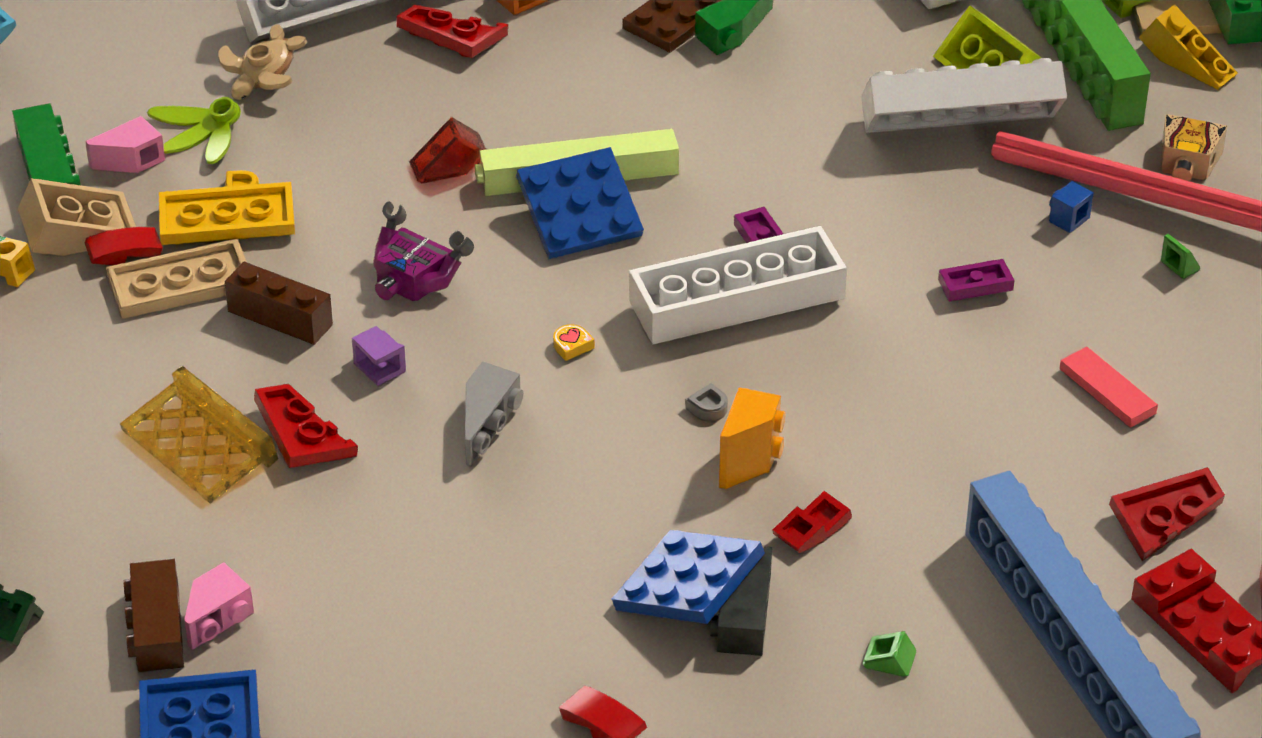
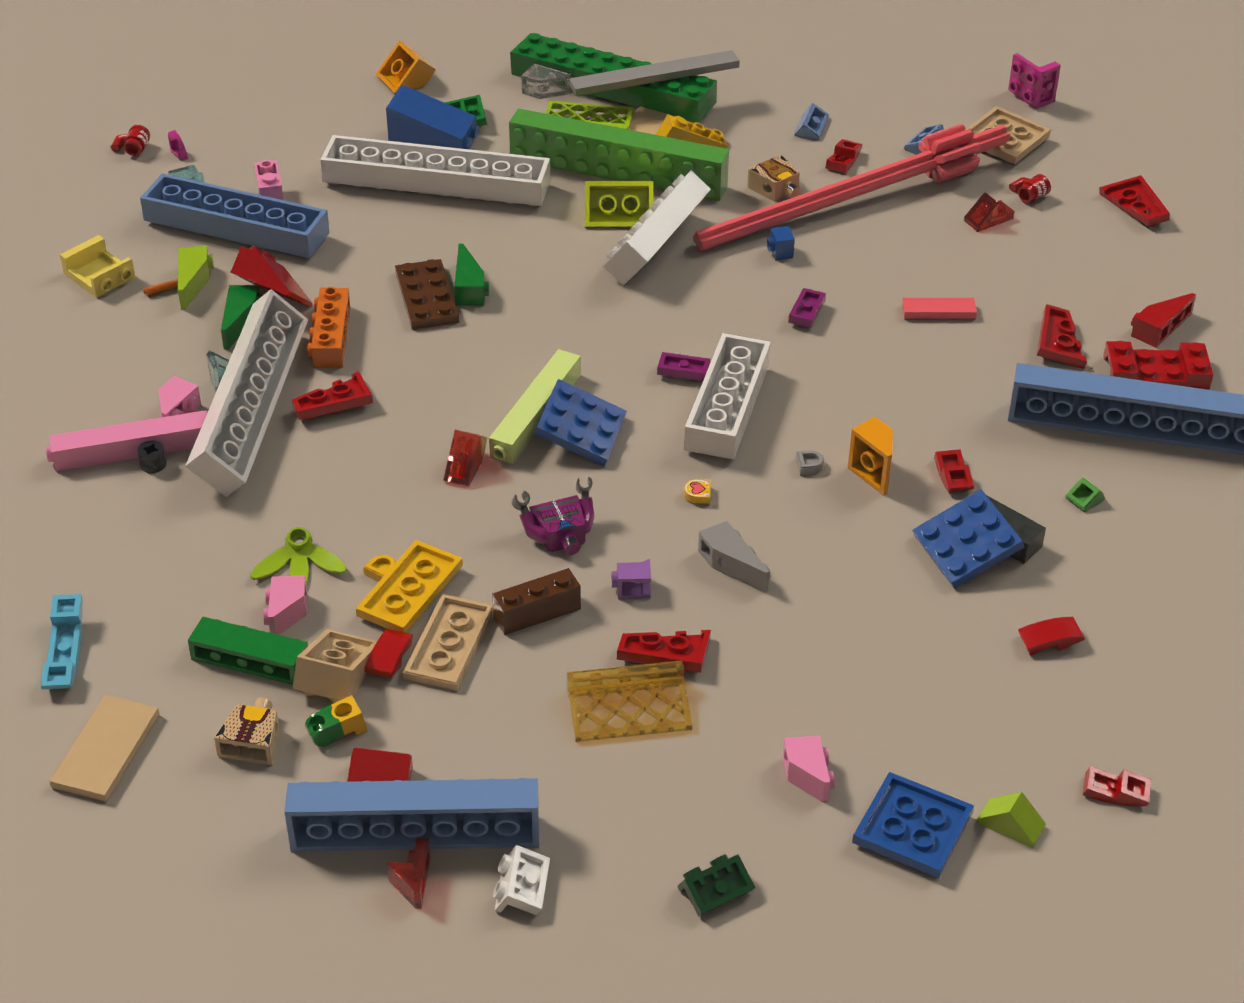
camera: 55 degrees left, 0 degrees up
(154, 615) = (793, 799): reddish brown brick -> none
(262, 63) = (273, 496): tan animal -> none
(1178, 257) = (860, 229): bright green slope -> none

